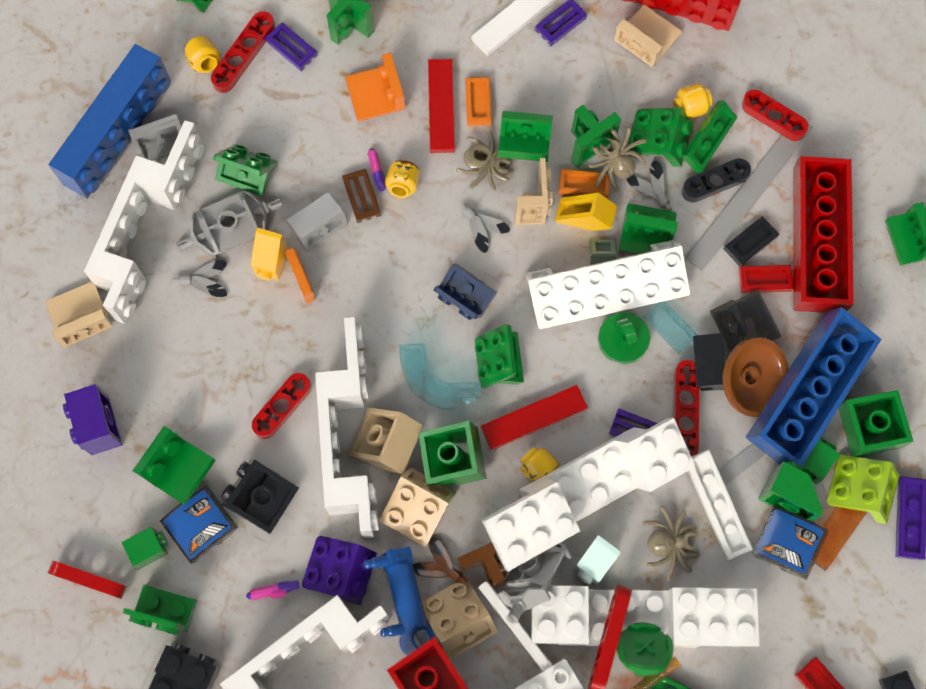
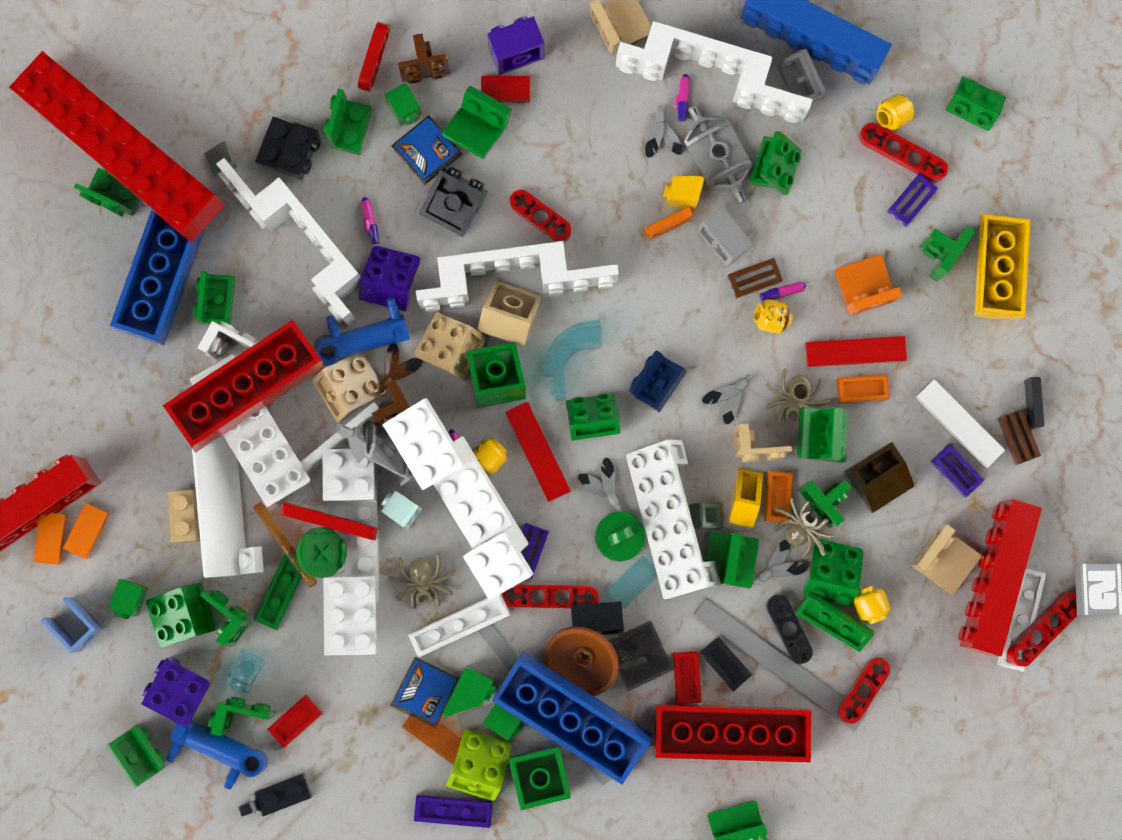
camera: 85 degrees right, 10 degrees up
(102, 521) = (425, 64): none -> reddish brown bracket
(137, 435) = (507, 88): none -> red tile
(167, 257) = (682, 99): none -> piece
(565, 87) = (881, 477): none -> dark brown slope
(572, 348) = (605, 488): none -> light grey piece

